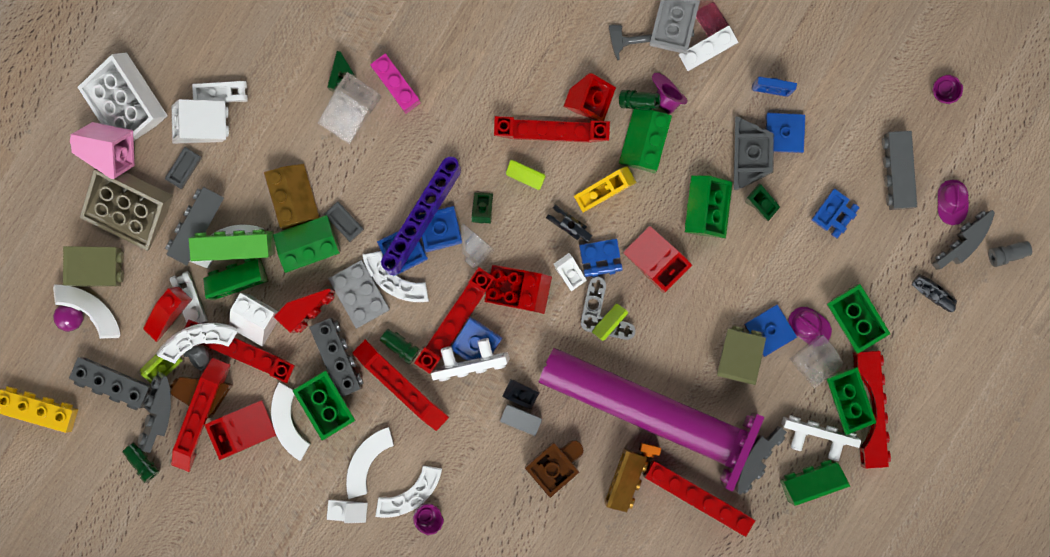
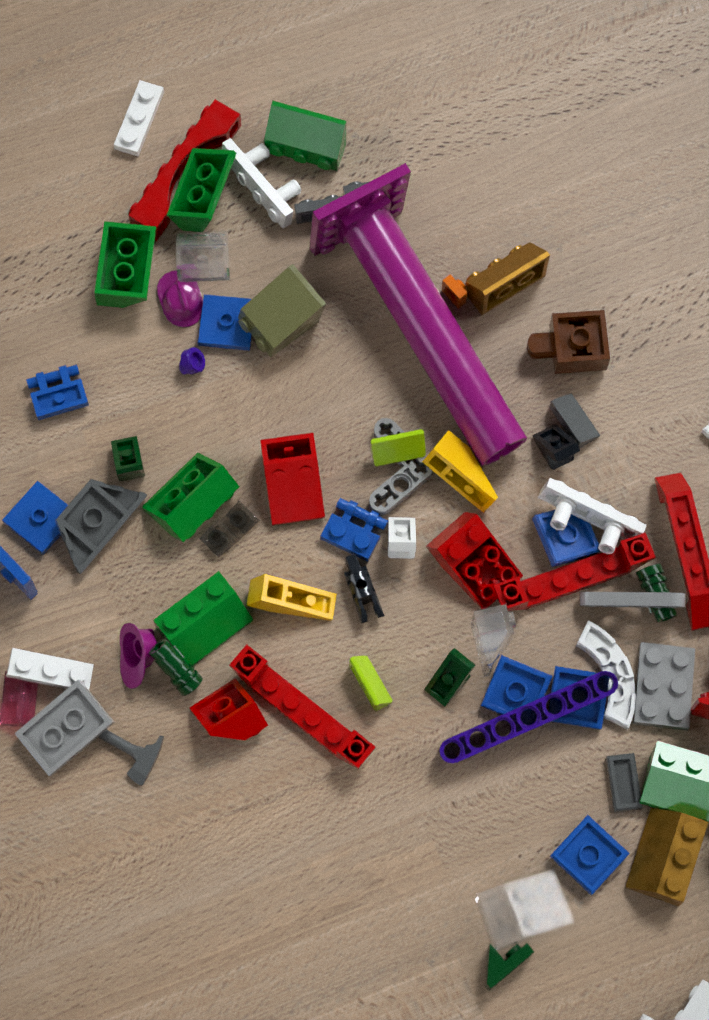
camera: 145 degrees left, 15 degrees down
(334, 165) = (589, 855): none -> blue plate
(395, 83) = (447, 898): dark pink arch -> none
(409, 328) = (633, 599): none -> light grey beam
(569, 338) = (459, 468): none -> yellow slope
(672, 205) = (229, 529): none -> clear smoke slope
(699, 498) = (455, 237): red arch -> none
(771, 290) = (192, 361): none -> dark purple tile
(926, 424) = (138, 118): none -> white plate
(935, 293) = (20, 235): black hinge -> none

